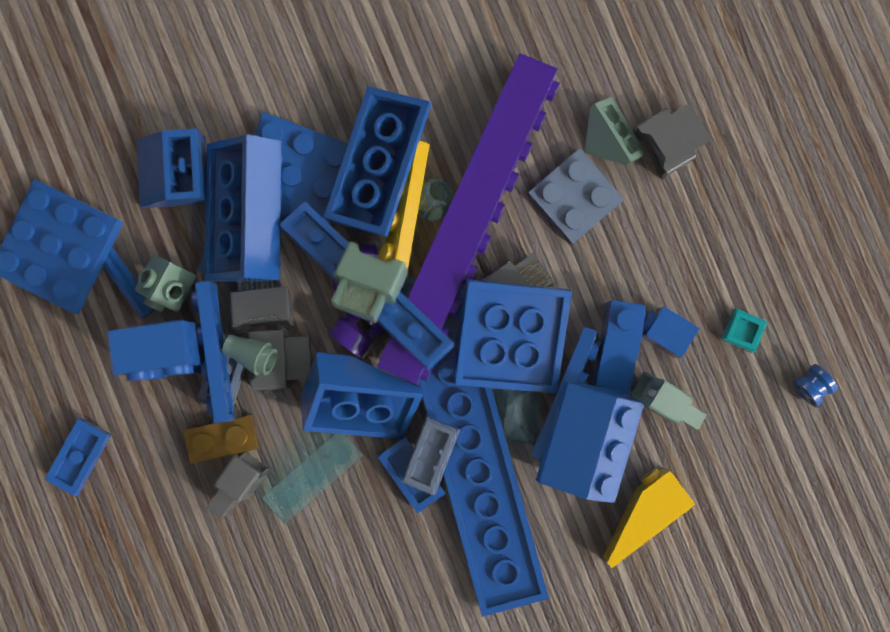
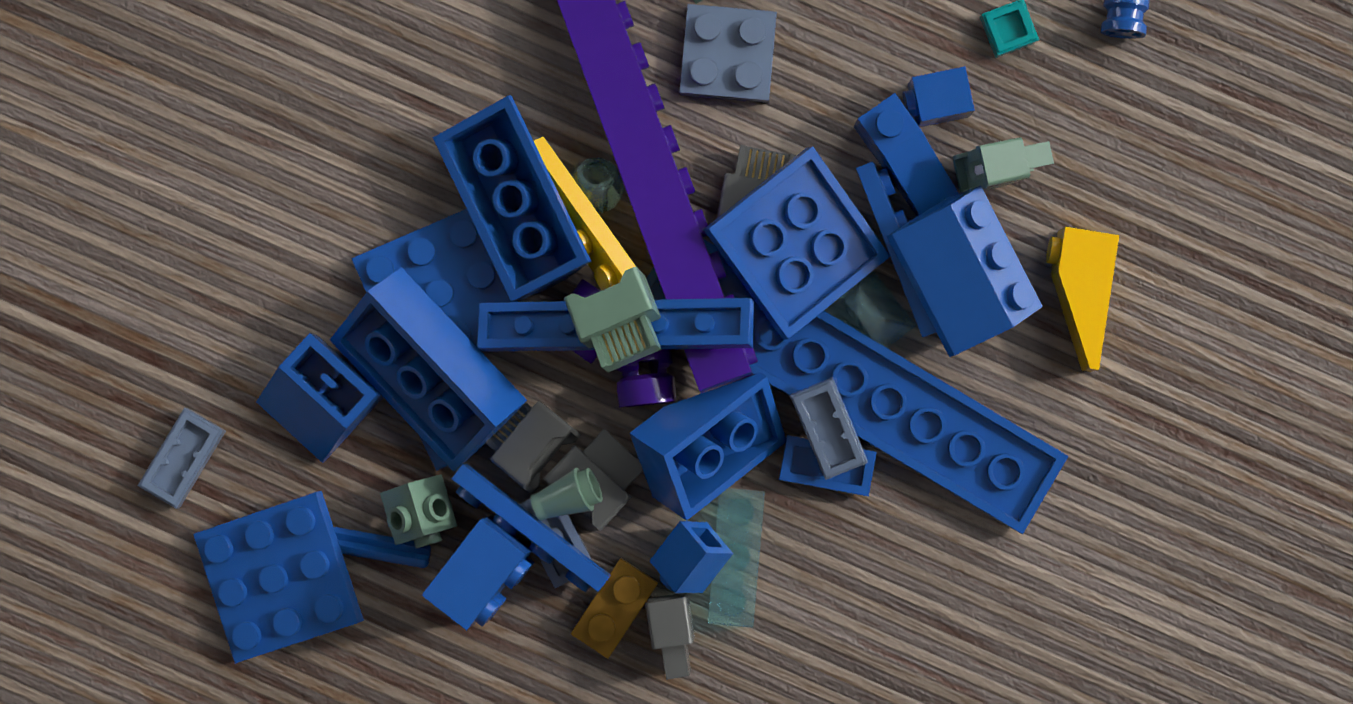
camera: 45 degrees left, 0 degrees up
(67, 132) = (181, 458): none -> sand blue plate
(286, 452) = (690, 557): none -> blue brick

